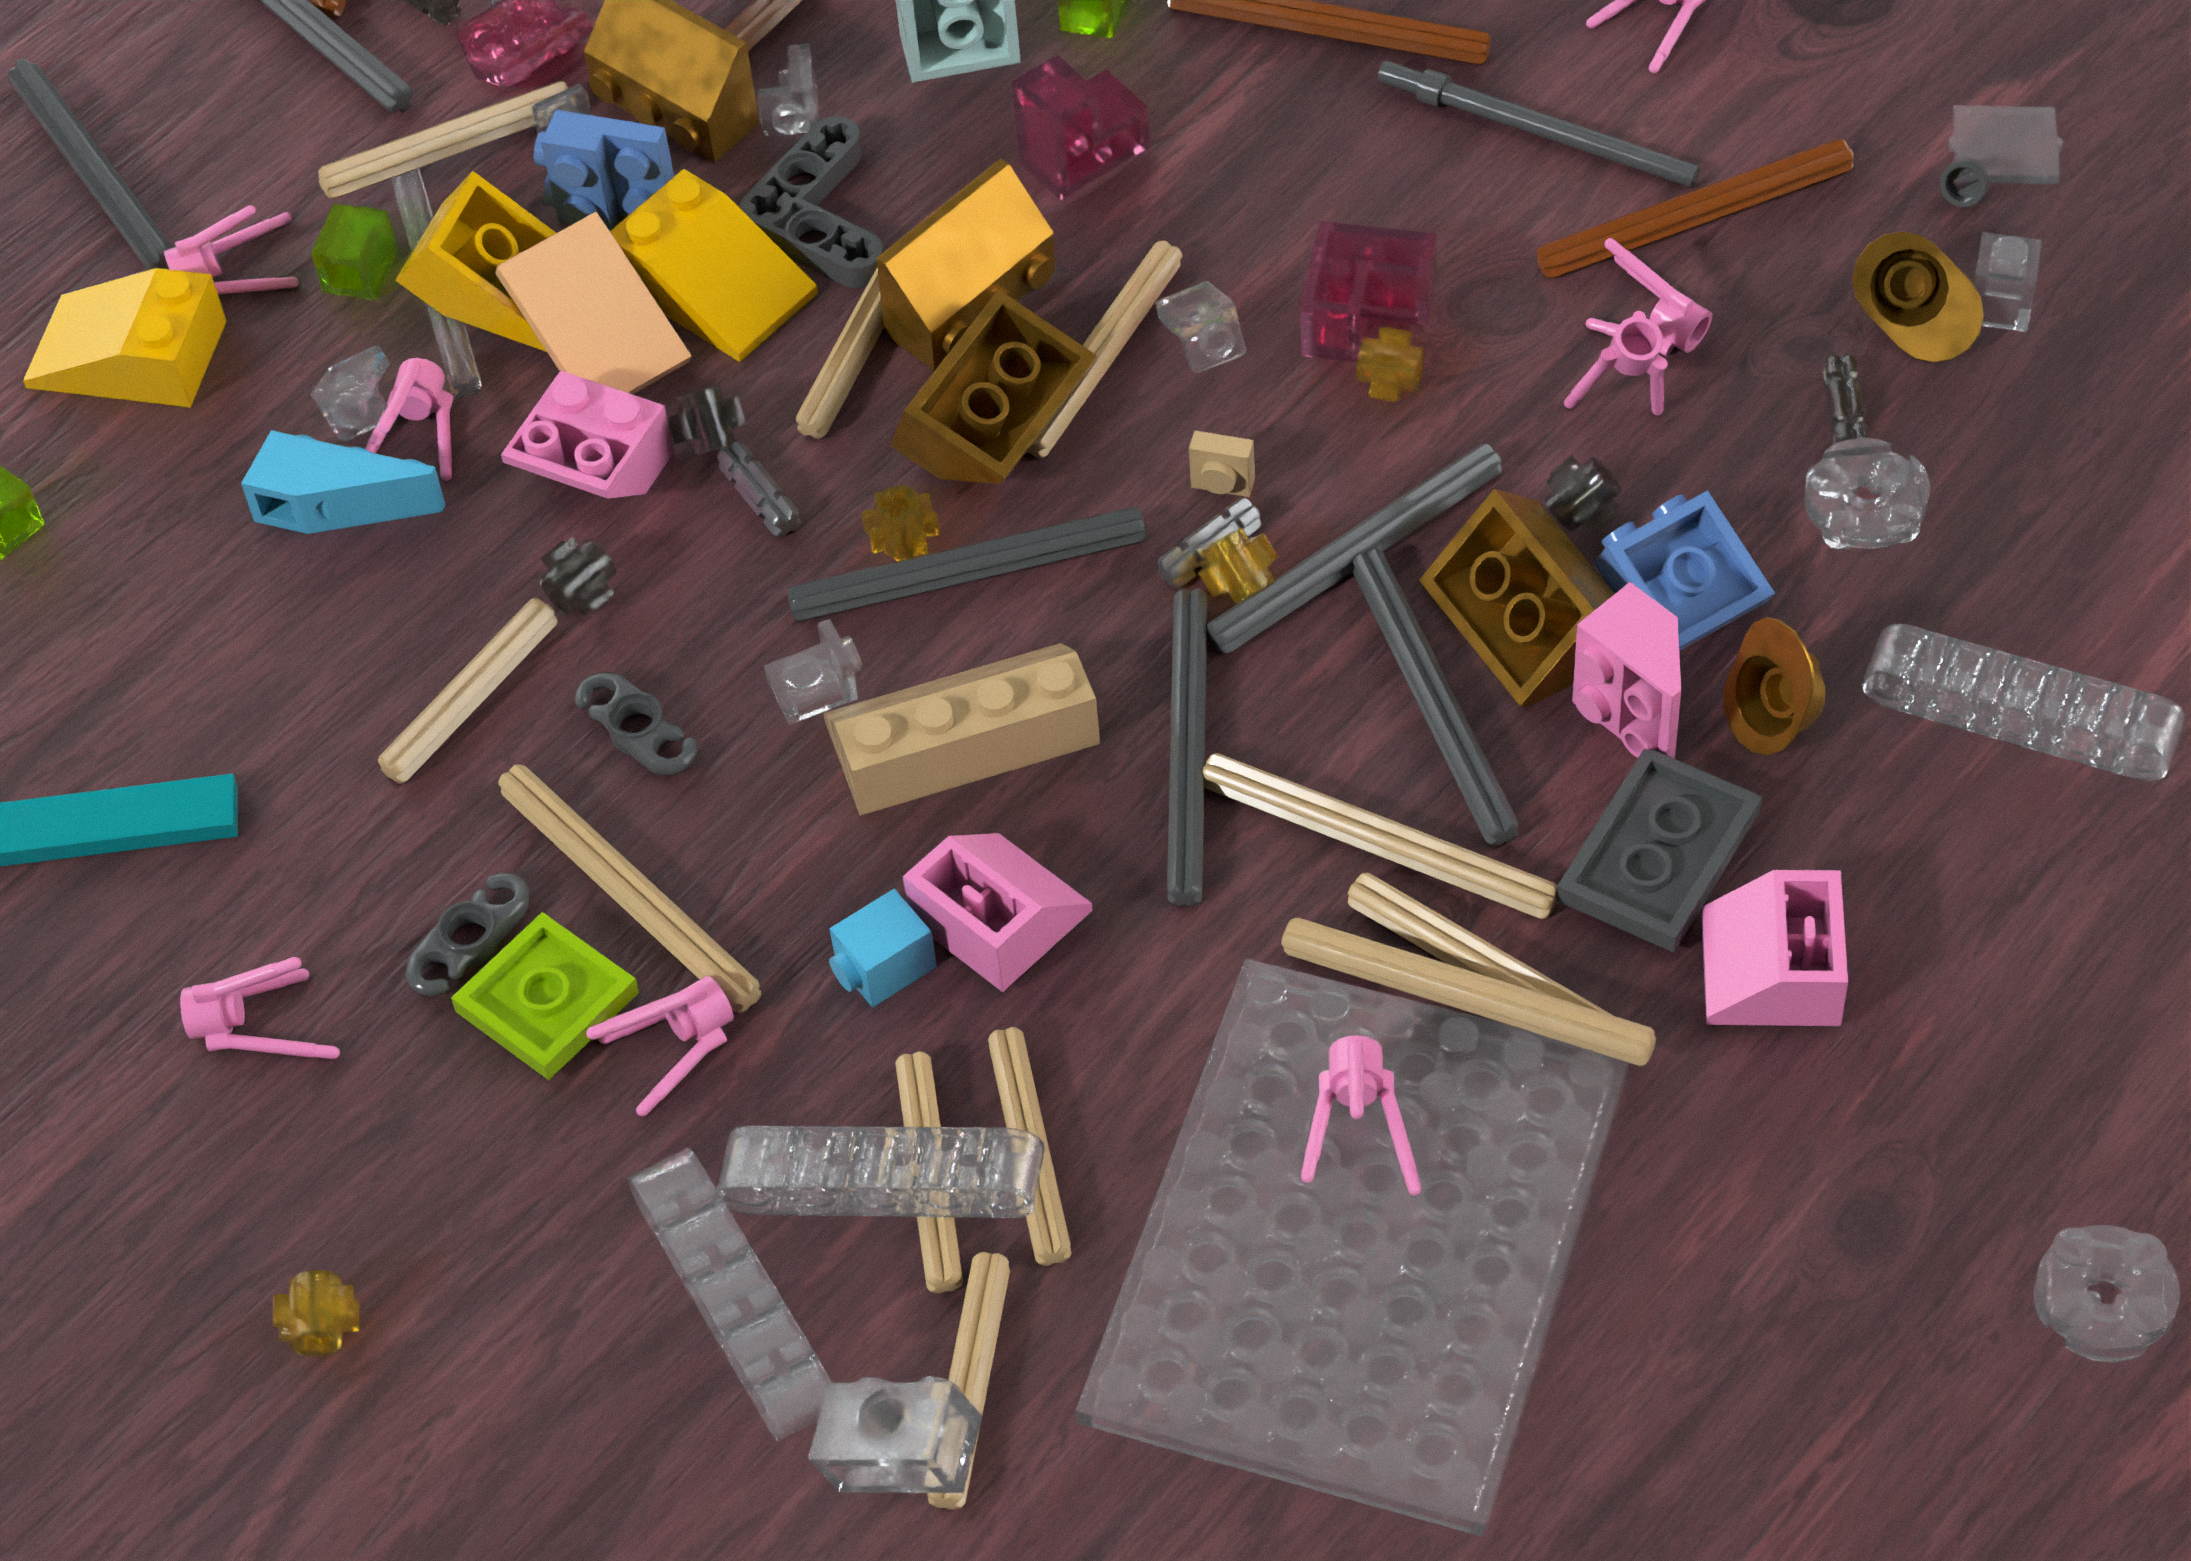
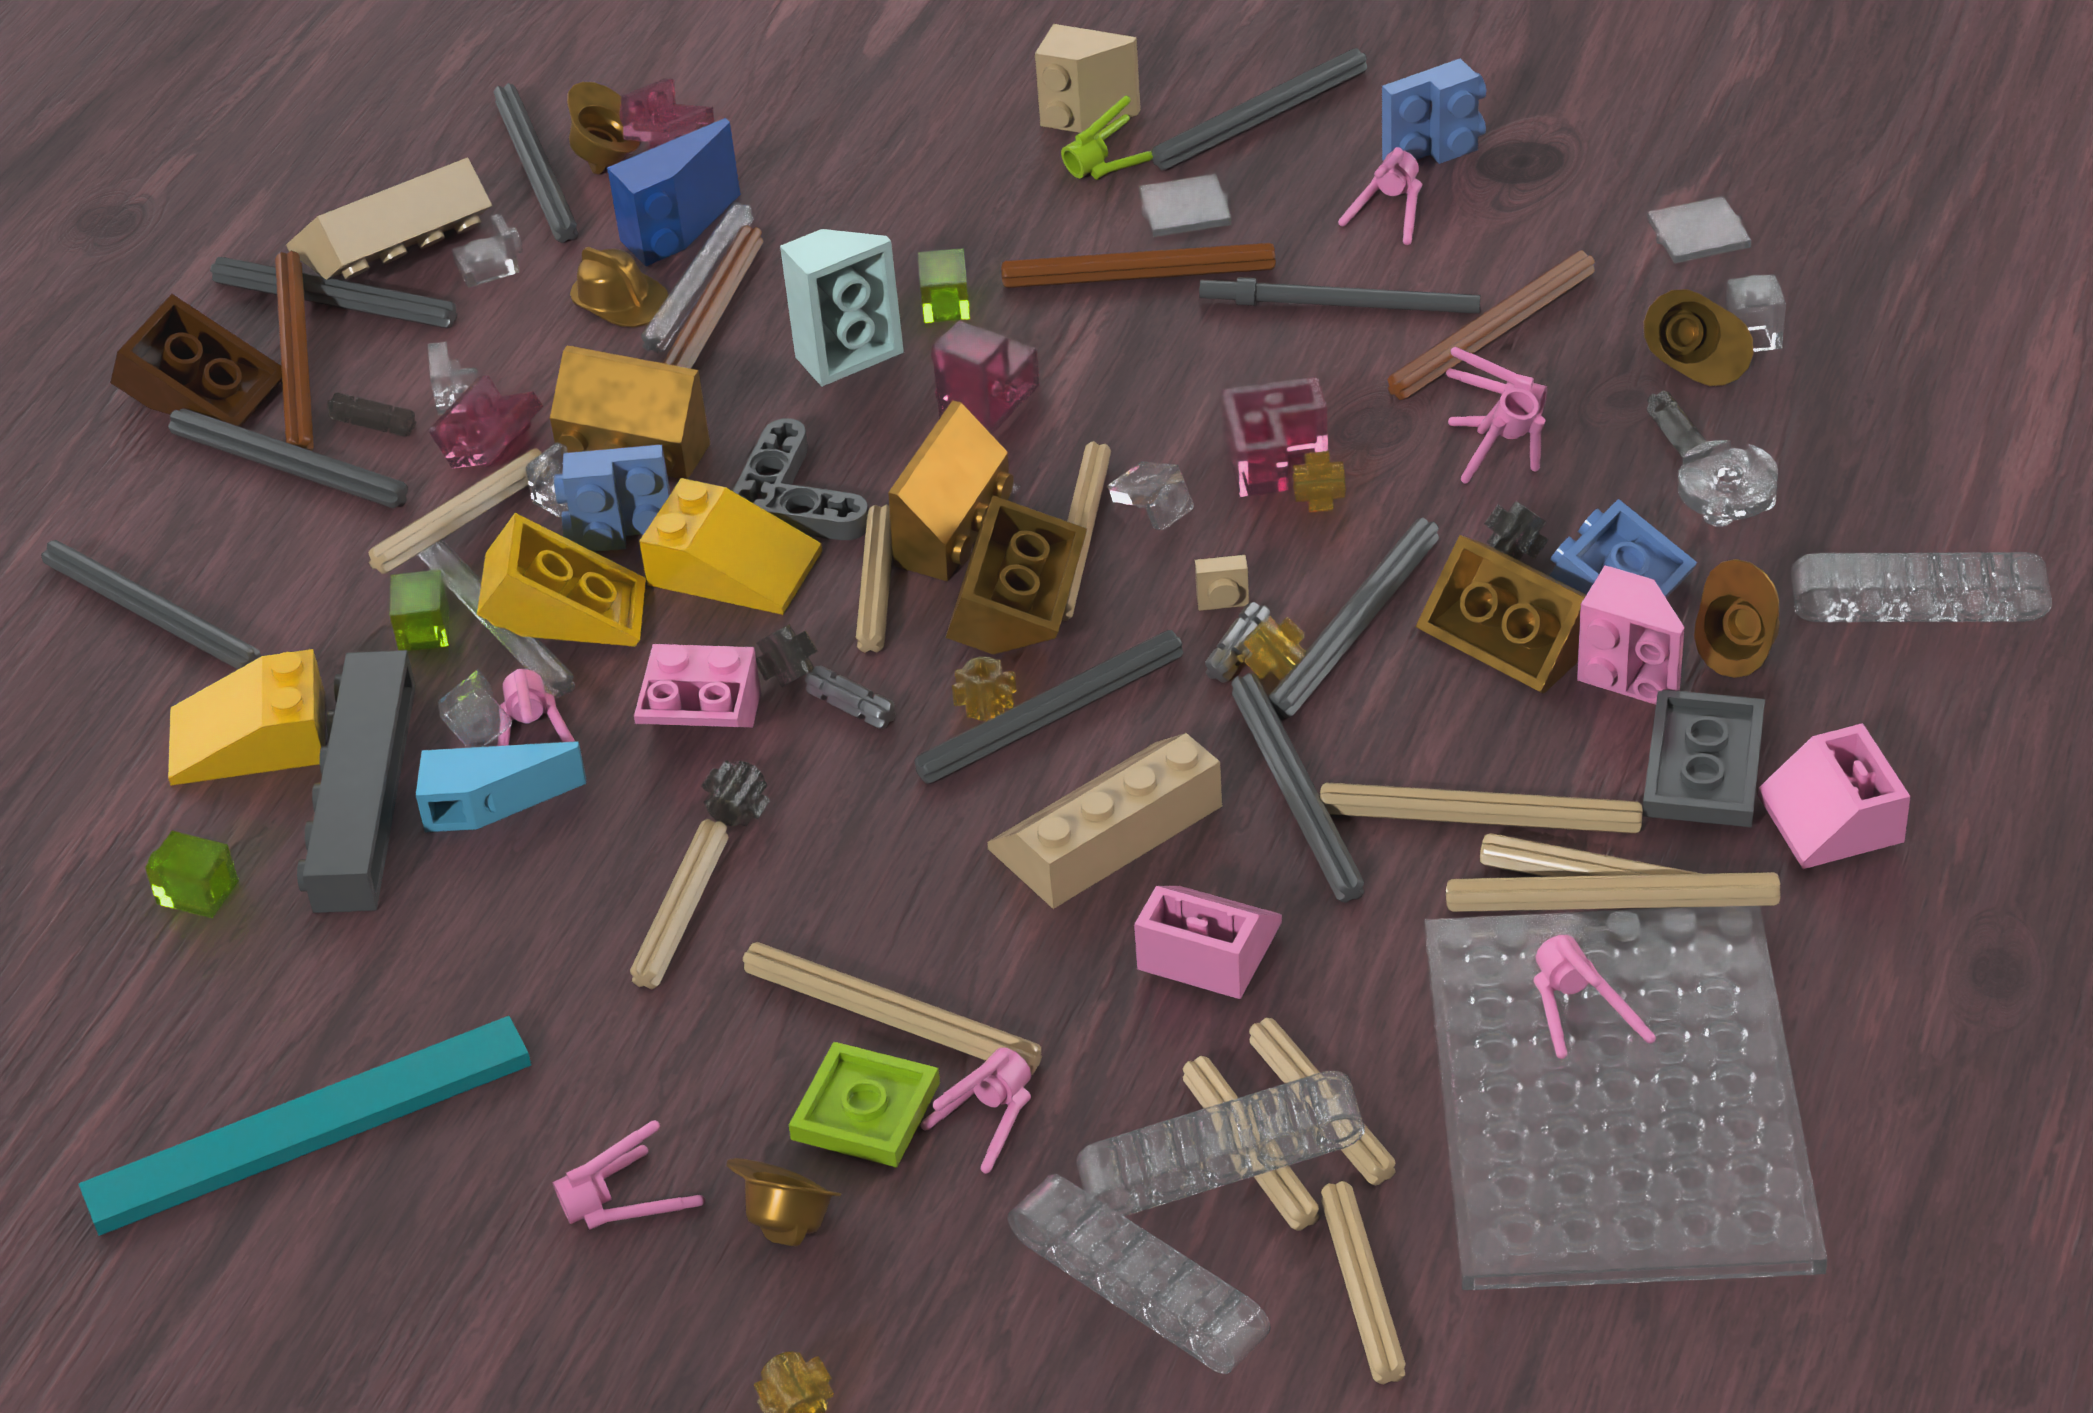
camera: 20 degrees left, 10 degrees down
(199, 254) = (286, 640): bright pink plant -> none
(204, 444) = (358, 783): none -> dark grey brick
(406, 1078) = (781, 1201): none -> pearl gold piece
(440, 948) = (755, 1096): dark grey piece -> none
(593, 308) = (651, 594): light nougat tile -> none
(643, 744) = (846, 905): dark grey piece -> none
(794, 104) = (738, 414): clear bracket -> none
(816, 676) = (969, 816): clear bracket -> none
(881, 948) = (1130, 991): medium azure brick -> none
(895, 1436) = (1335, 1331): clear brick -> none
(1435, 698) = (1474, 702): dark grey axle -> none
(1970, 193) = (1694, 264): dark grey hinge -> none

